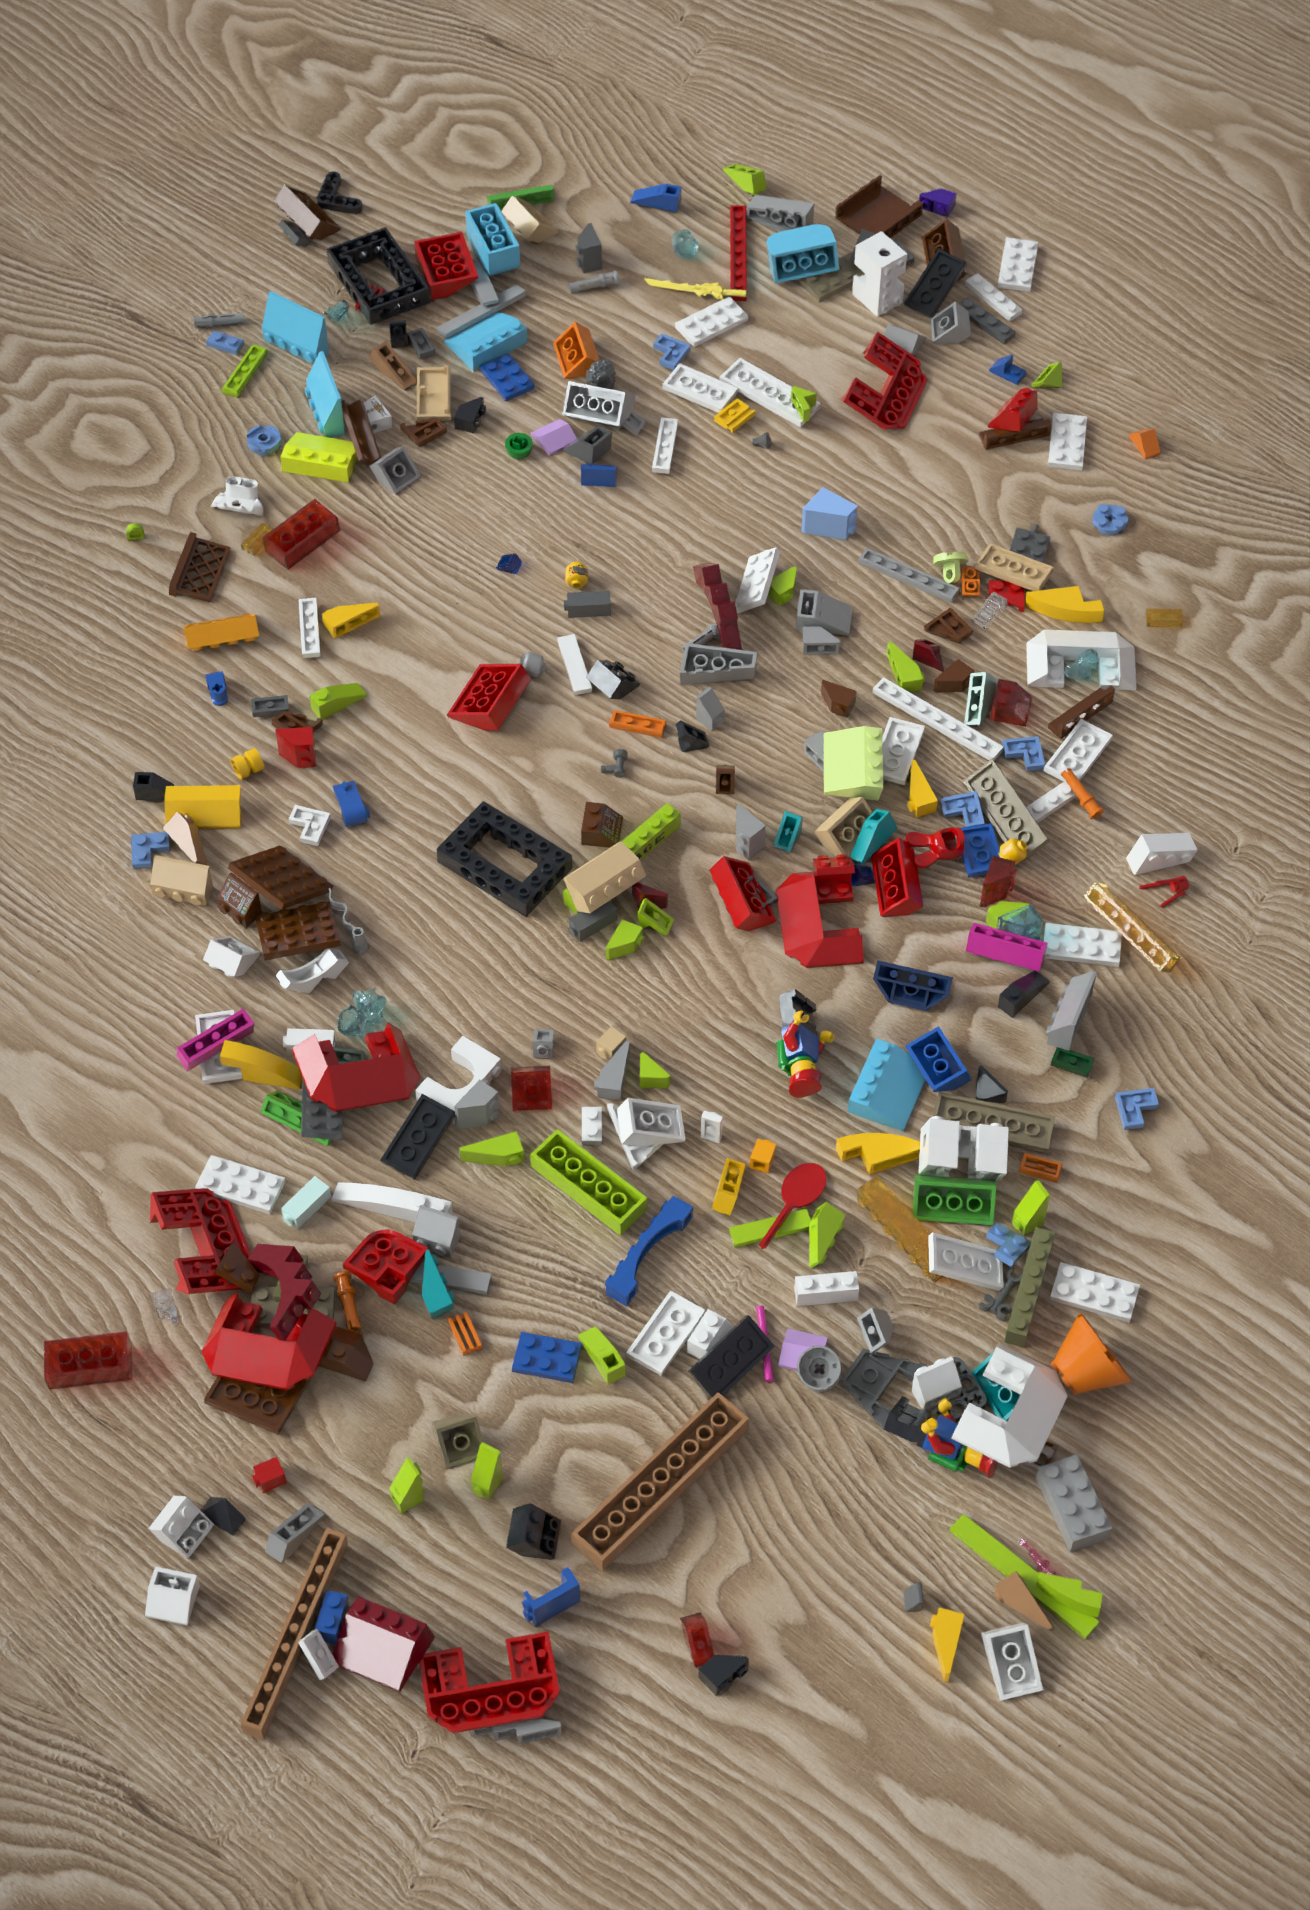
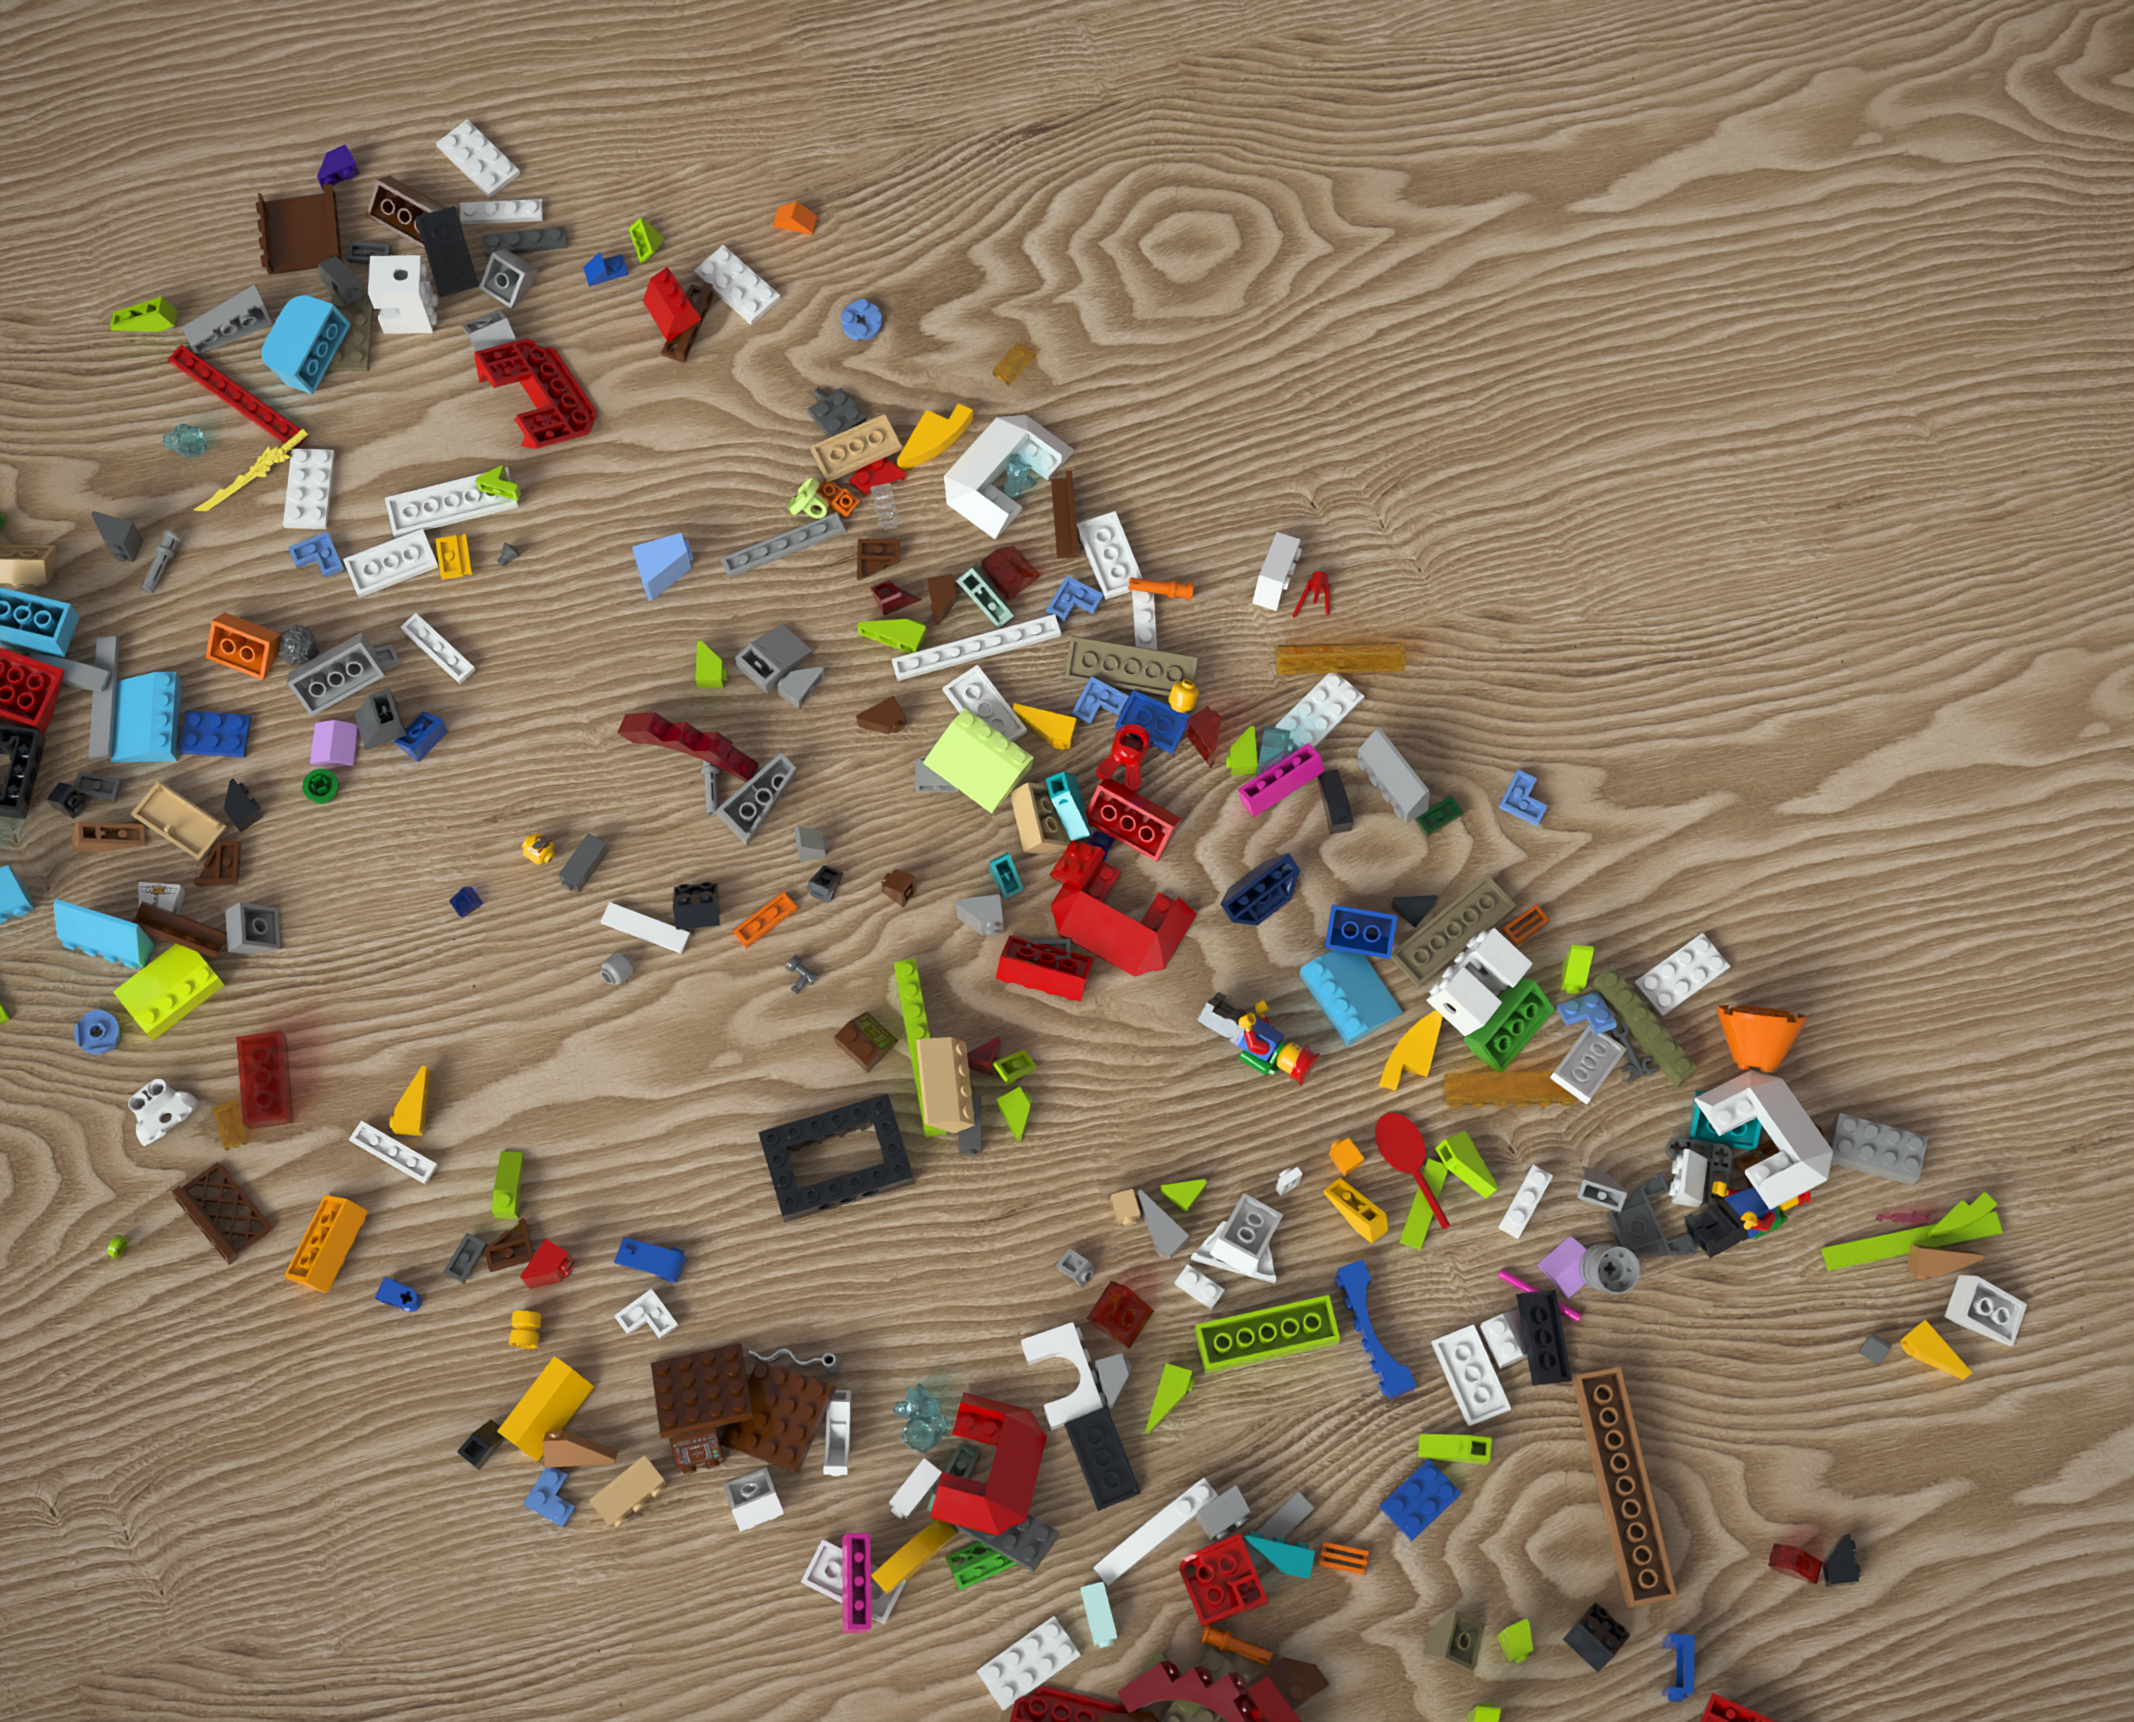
camera: 55 degrees left, 15 degrees up
(490, 695) = (622, 1036): red slope -> none
(660, 196) = (97, 419): blue slope -> none
(757, 580) = (684, 686): white plate -> none

